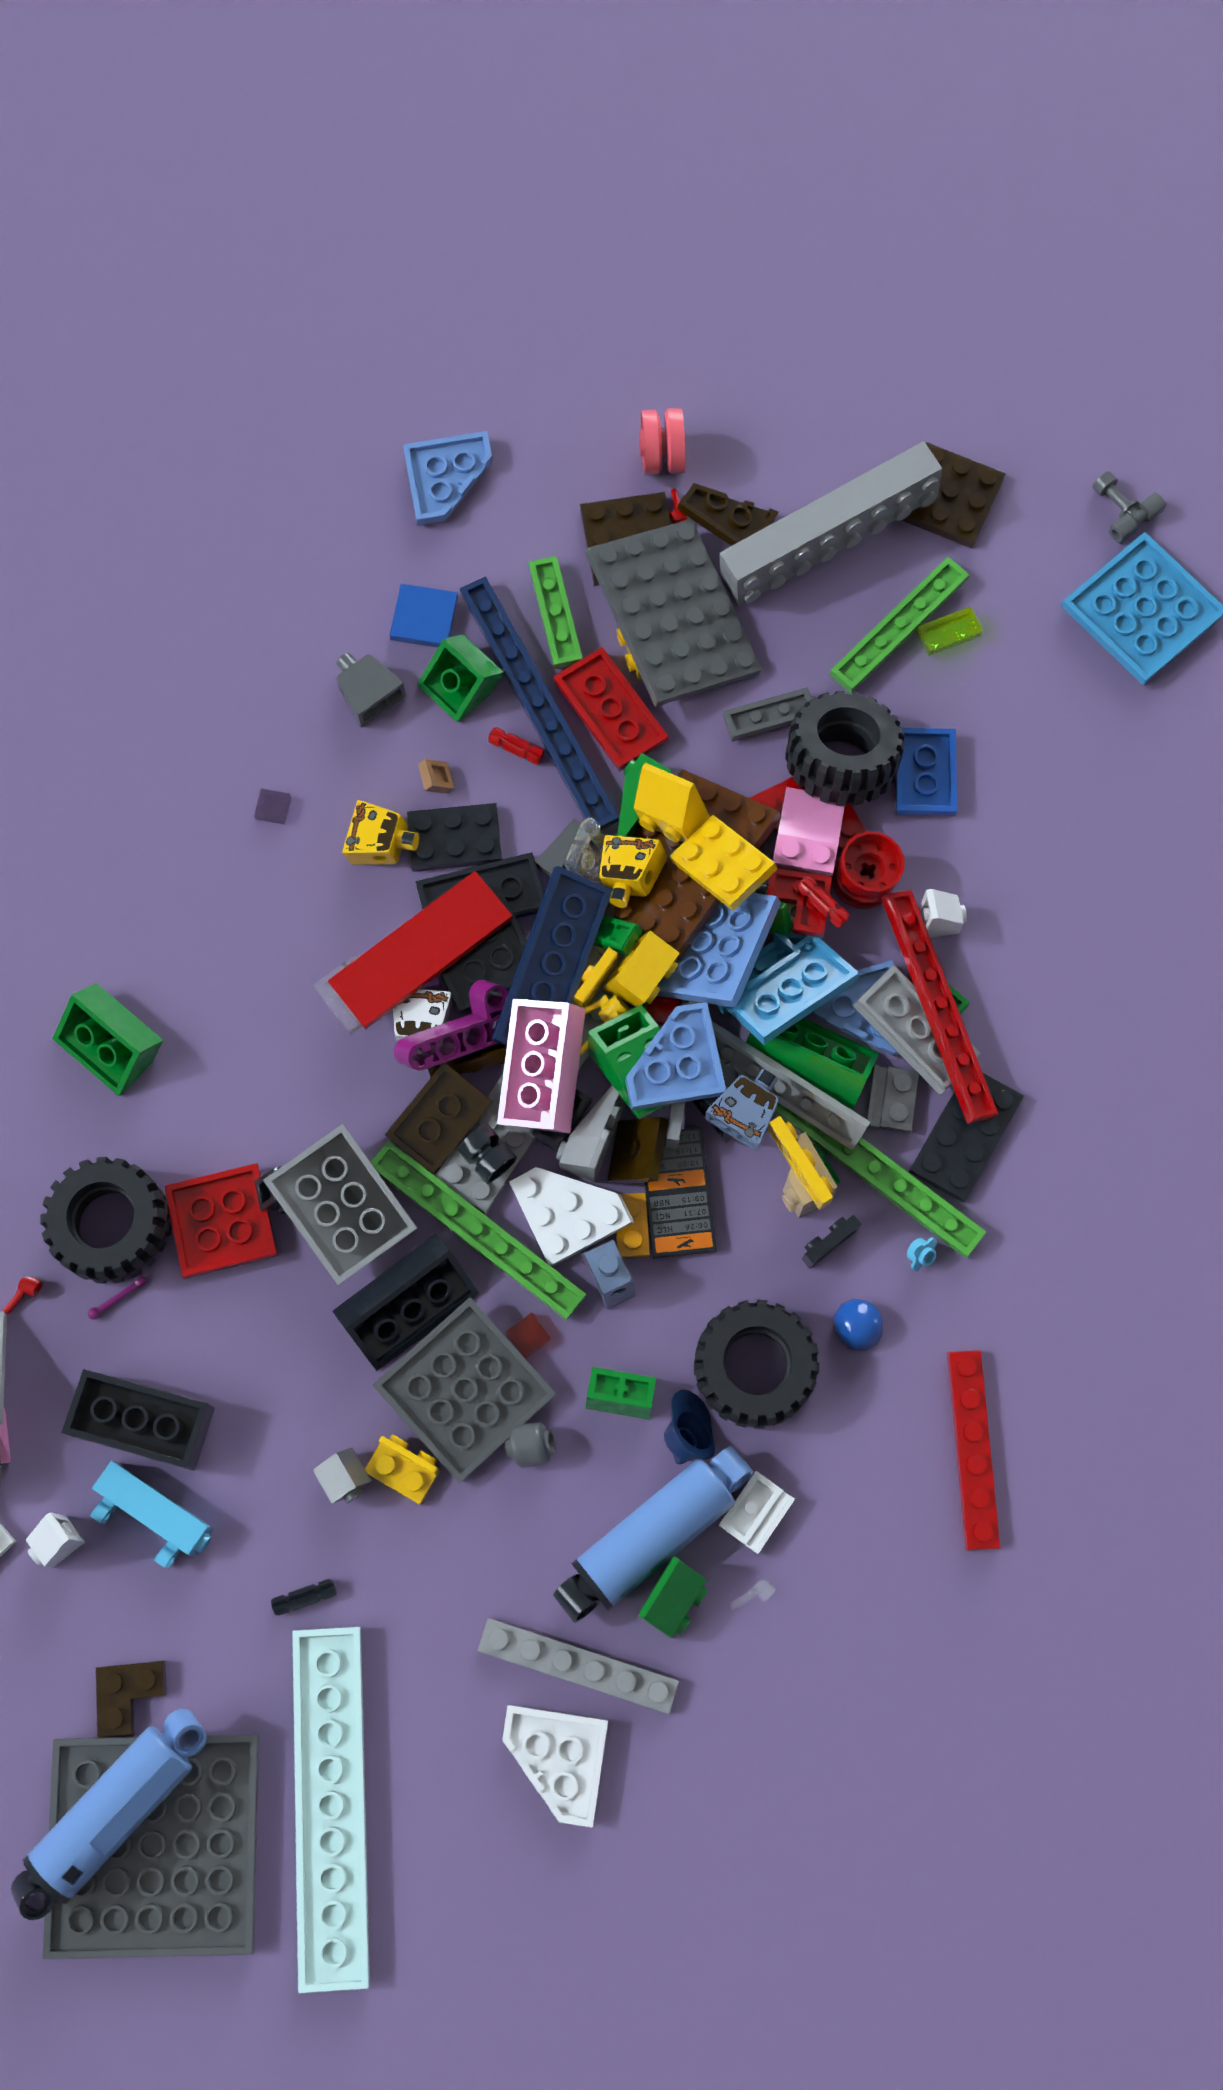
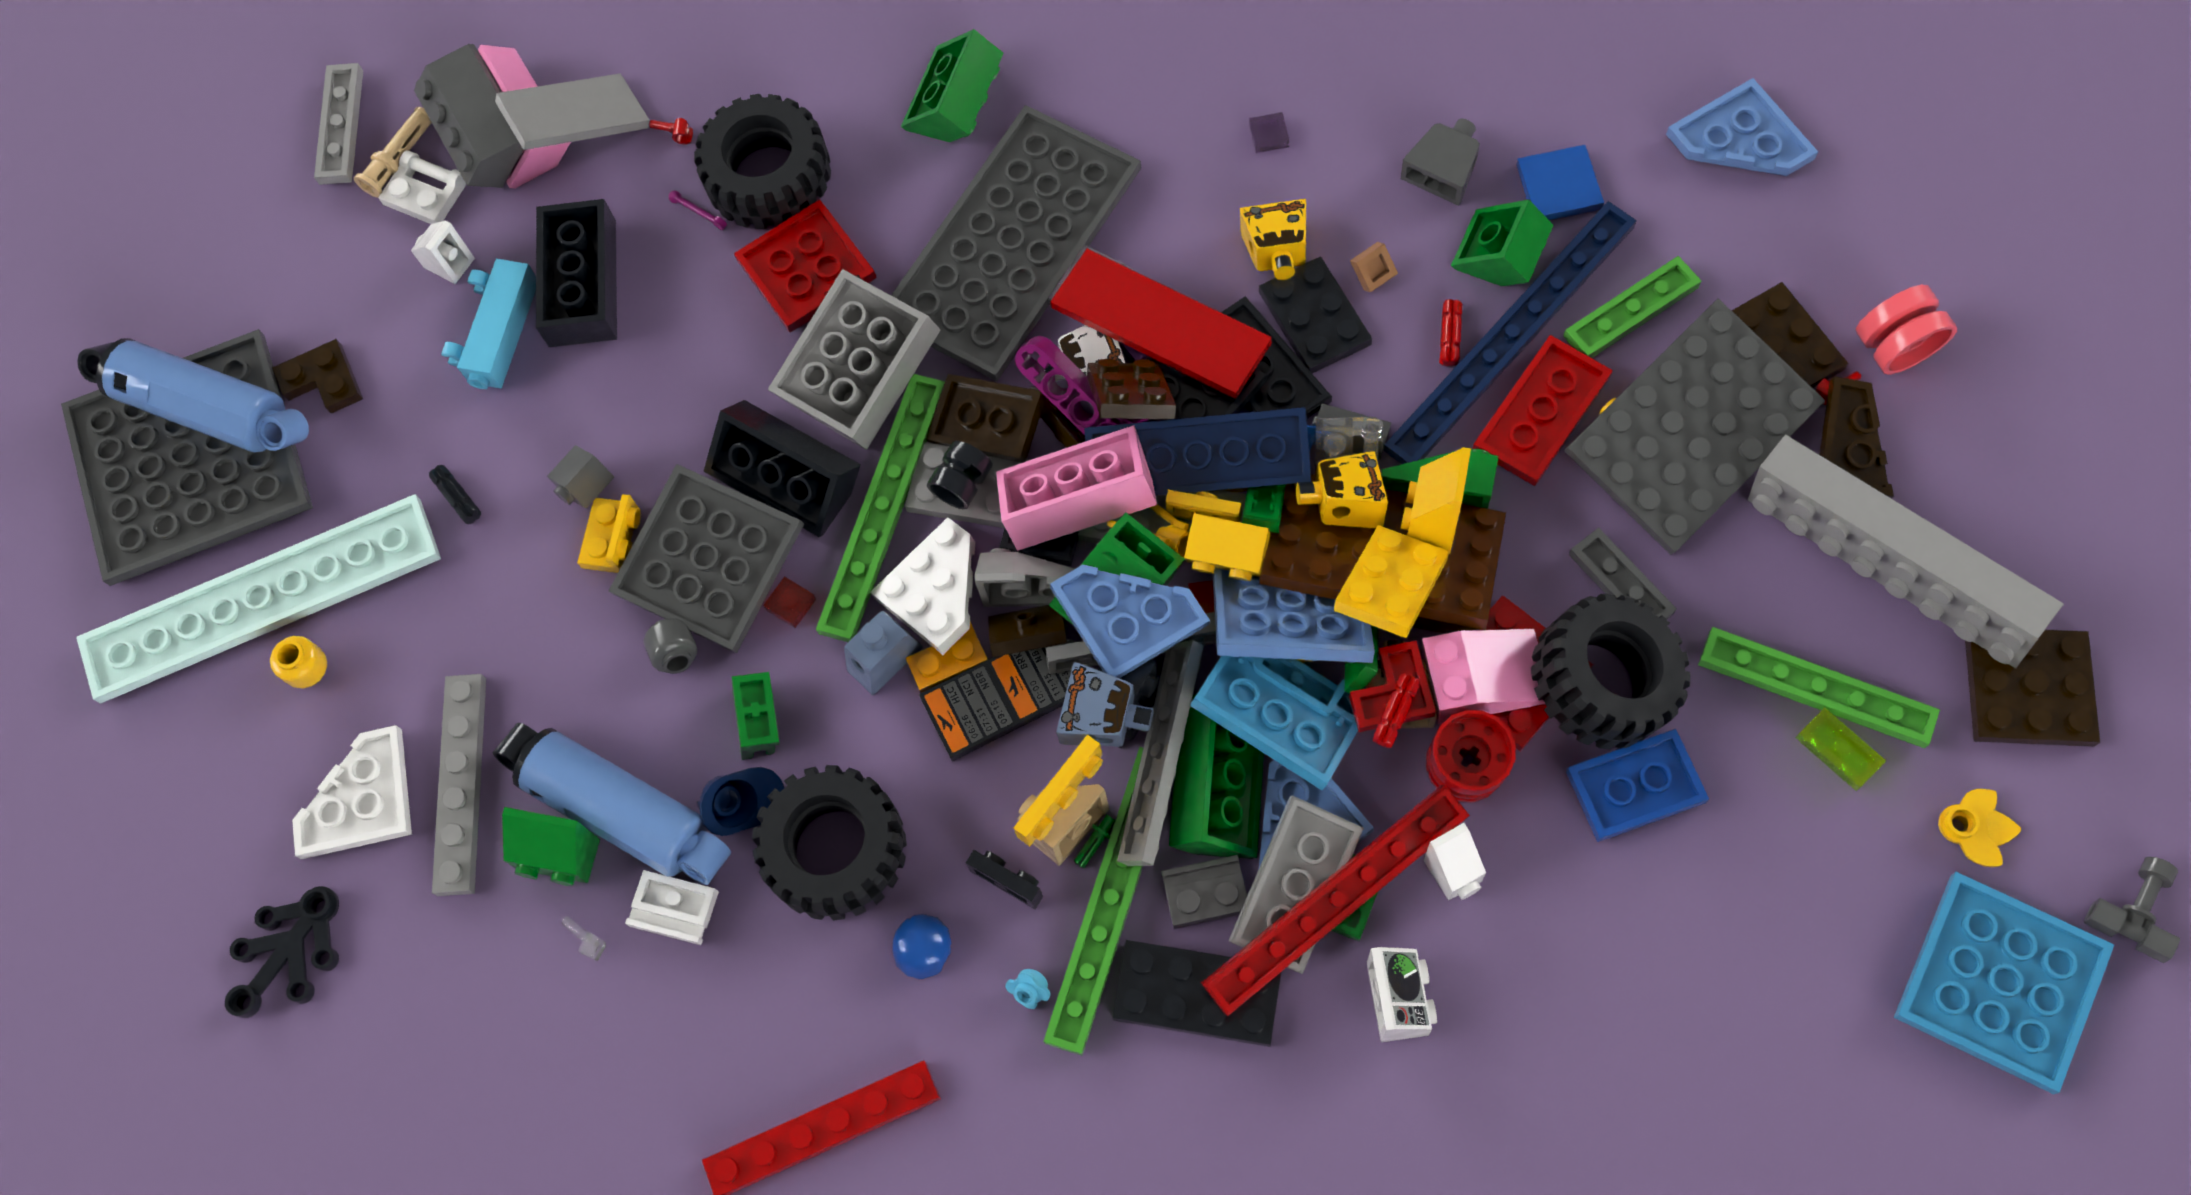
camera: 80 degrees right, 5 degrees down
(277, 1039) = (1014, 238): none -> dark grey plate
(401, 1779) = (298, 662): none -> yellow head
(481, 990) = (1130, 390): none -> dark brown plate
(667, 1856) = (287, 947): none -> black plant
(1022, 992) = (1399, 993): none -> slope
(1036, 571) = (1983, 827): none -> yellow plate

